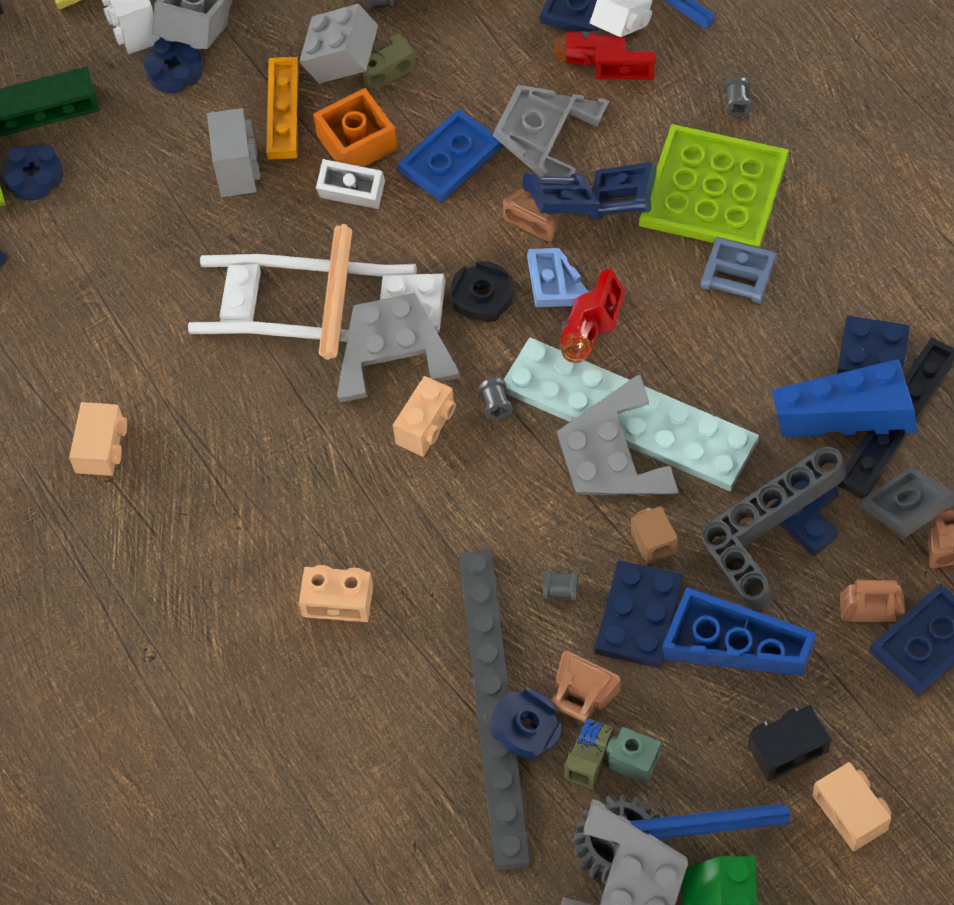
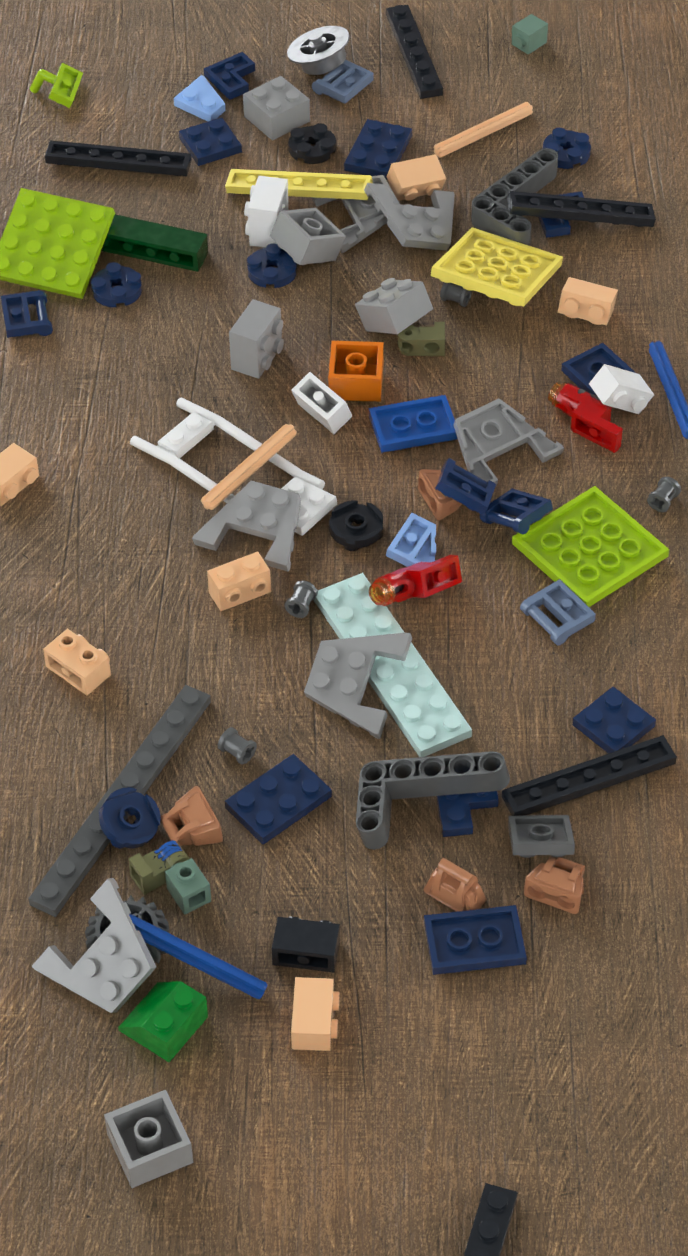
camera: 30 degrees right, 10 degrees down
(282, 108) = (321, 332): light orange plate -> none
(654, 534) = (333, 751): medium nougat brick -> none
(735, 637) = (324, 847): blue wedge -> none
(847, 403) = (552, 740): blue wedge -> none

